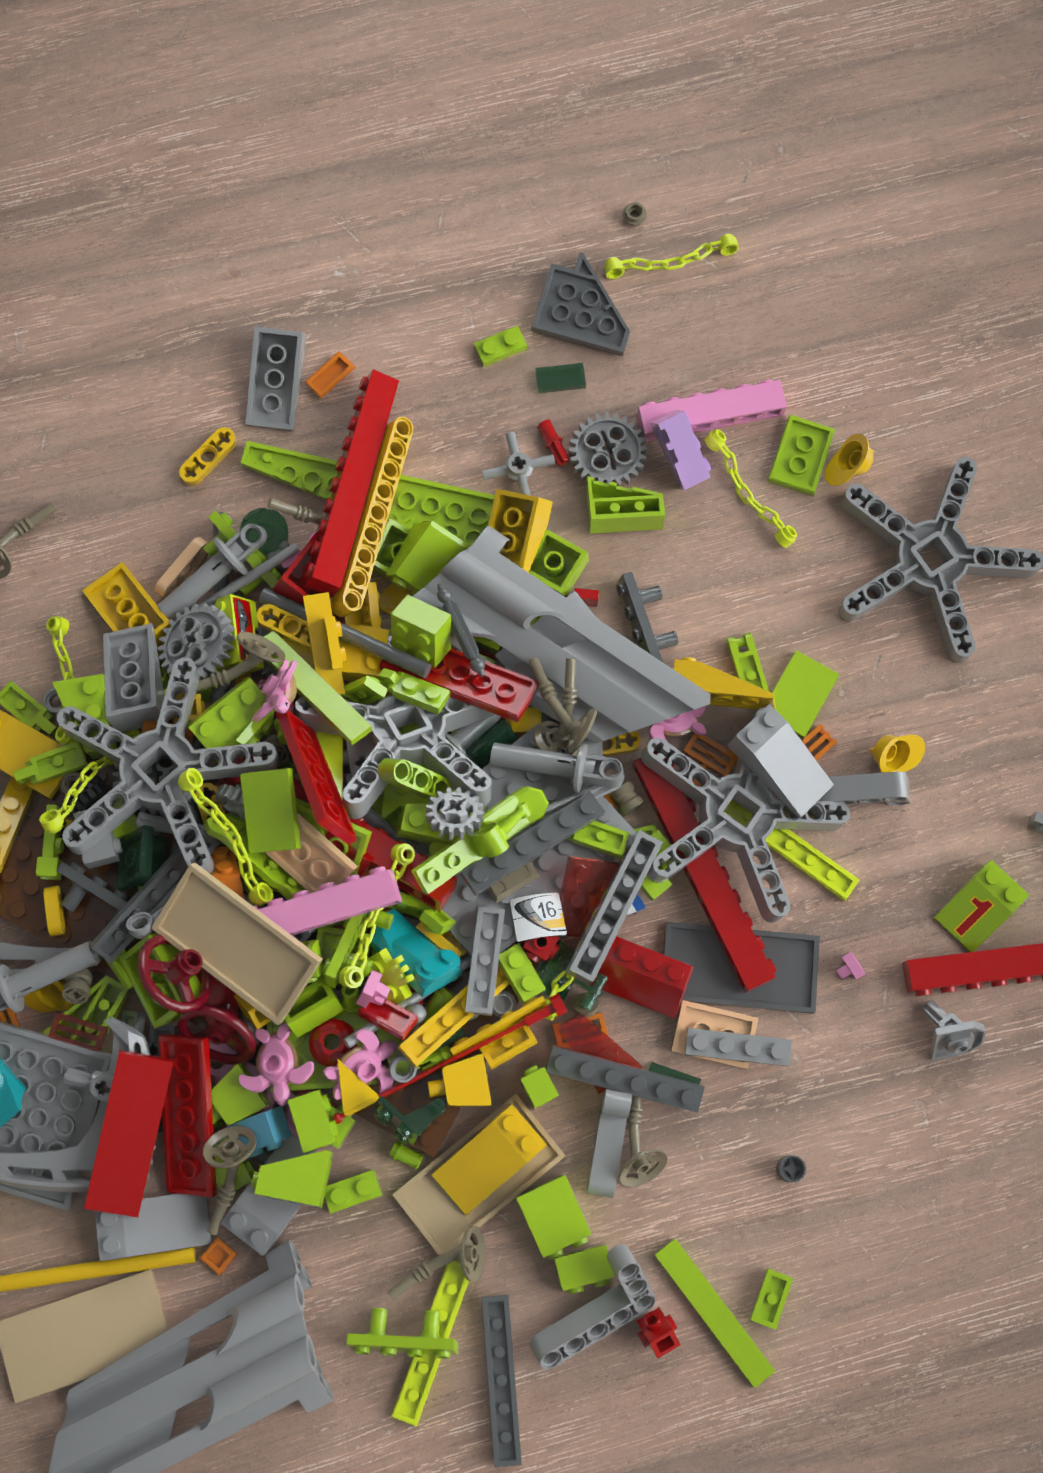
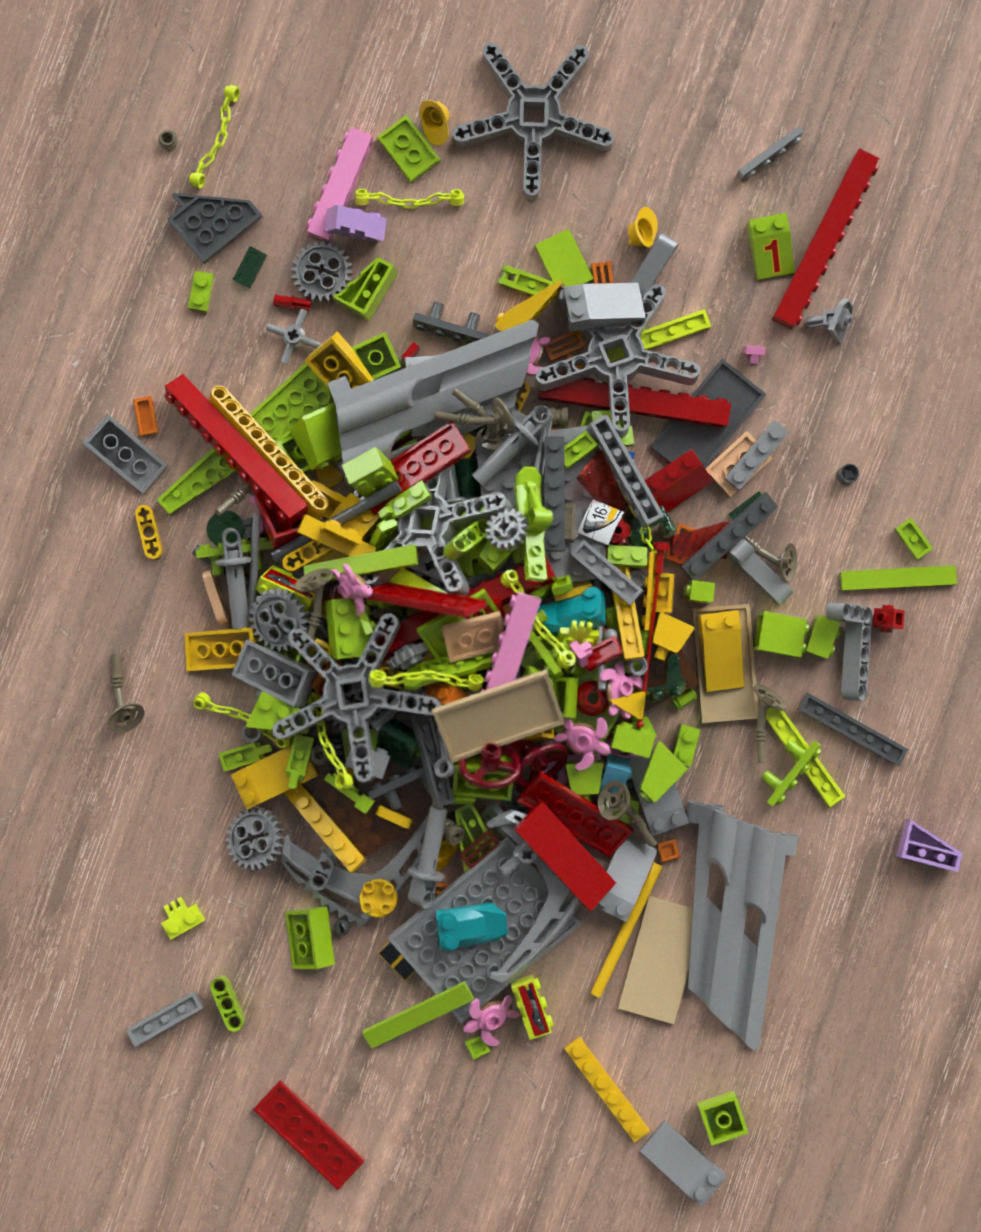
camera: 55 degrees left, 10 degrees up
(270, 810) = (429, 641): lime tile -> none
(461, 630) = (387, 447): dark grey wheel -> none

